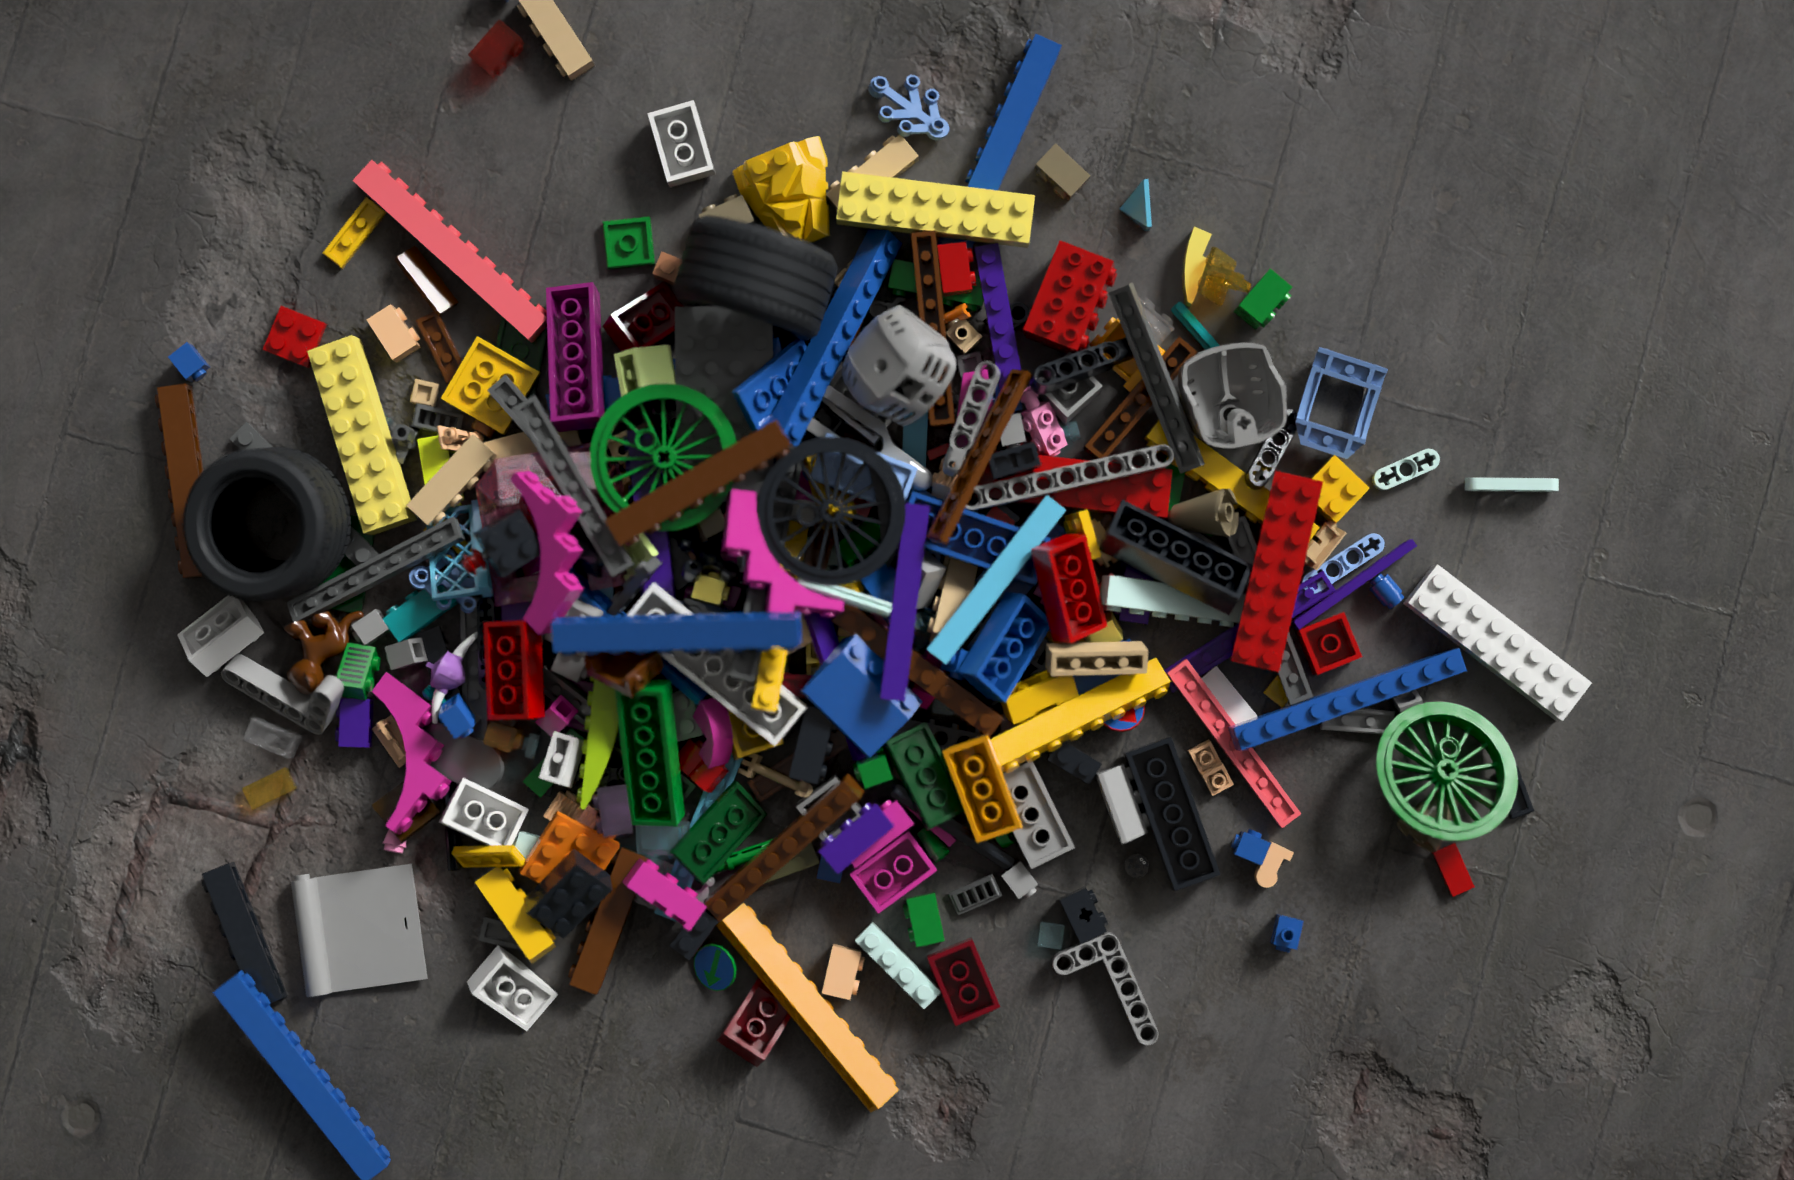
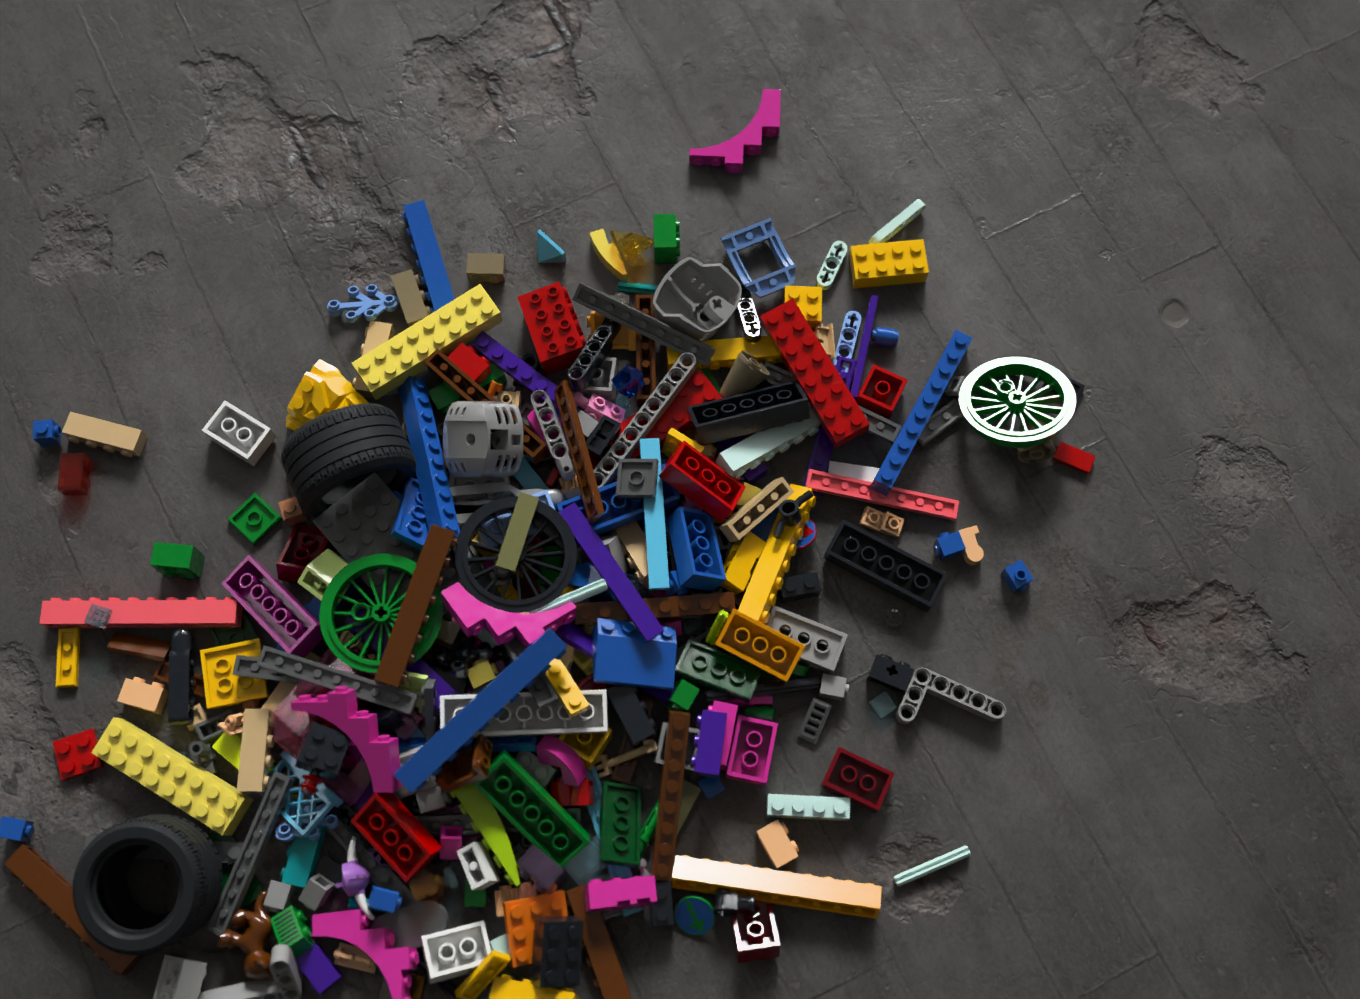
camera: 45 degrees left, 15 degrees down
(410, 222) = (98, 616): none -> clear light blue tile
(440, 348) = (181, 679): none -> black piece
(526, 229) = (177, 560): none -> green brick
(755, 988) = (732, 903): none -> black connector
(849, 492) = (517, 532): none -> olive tile
(924, 918) = (798, 764): green brick -> none
(960, 143) = (410, 297): none -> dark tan brick
(960, 736) = (717, 627): none -> lime axle
(962, 1112) = (932, 865): none -> light aqua axle
(1008, 533) = (637, 478): none -> dark grey tile
(1085, 416) = (628, 381): none -> clear blue brick
(1122, 803) = (850, 586): light grey slope -> none
(1125, 698) = (788, 518): none -> black piece
(1276, 692) = (878, 446): yellow tile -> none
(1416, 260) = (748, 141): none -> dark pink arch
(1461, 519) = (888, 263): none -> yellow brick
(1497, 643) = (973, 311): white brick -> none

